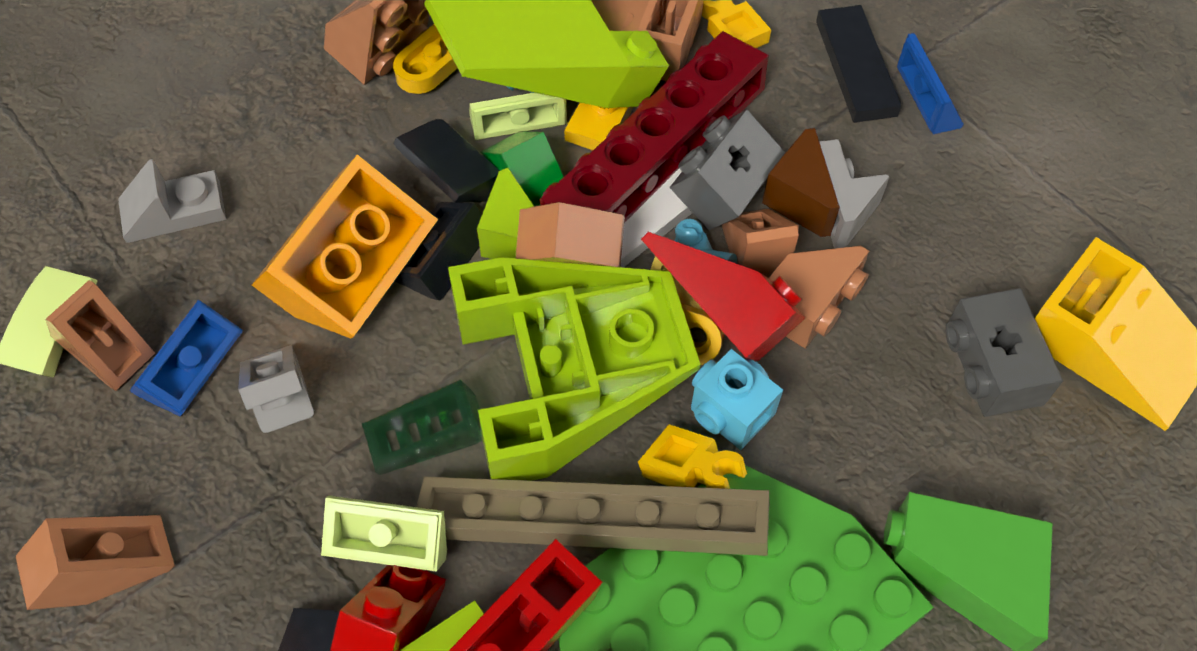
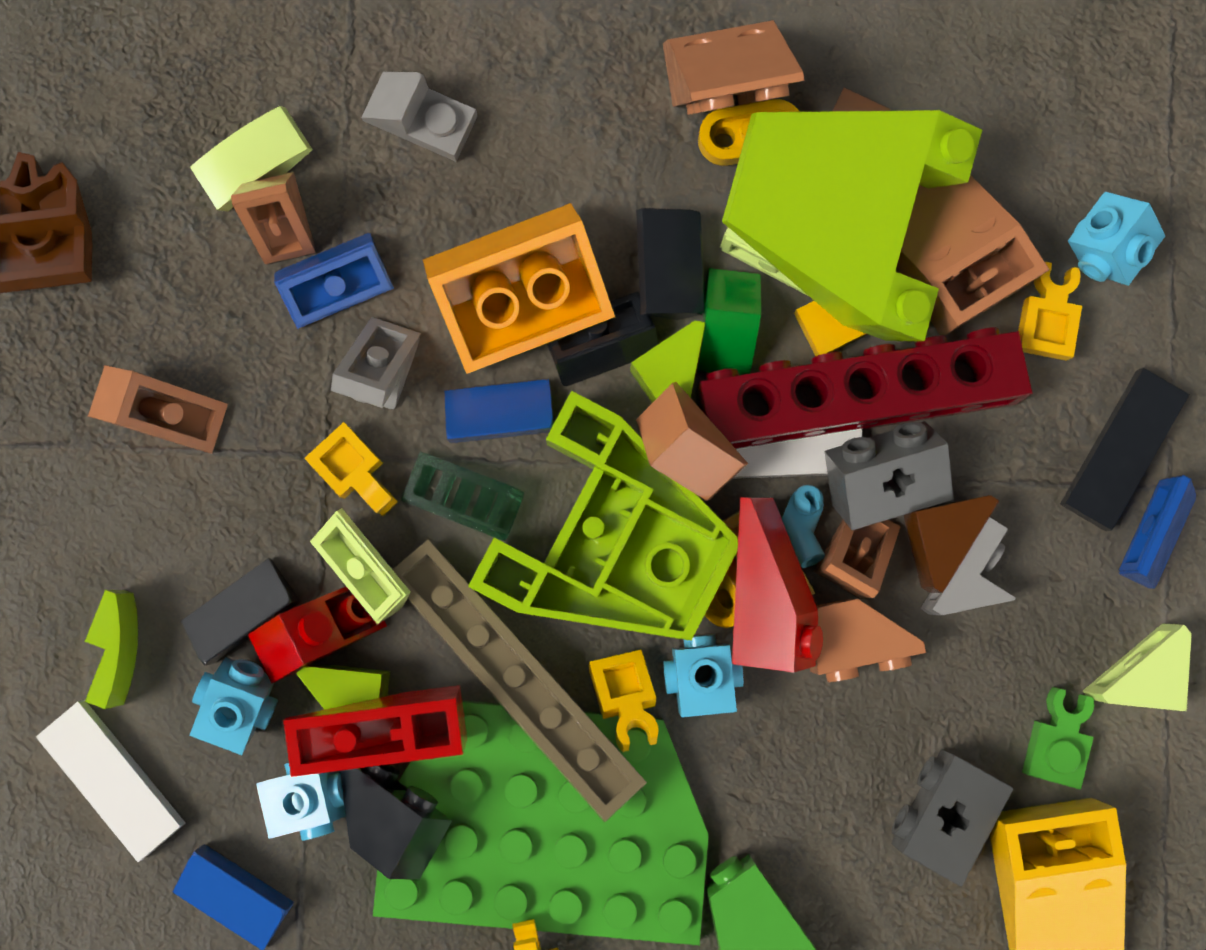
camera: 40 degrees right, 25 degrees up
(309, 472) = (348, 466): none -> yellow plate
(404, 350) = (498, 411): none -> blue slope
(1014, 258) = (1058, 749): none -> bright green plate
(1020, 164) = (1150, 673): none -> yellowish green slope

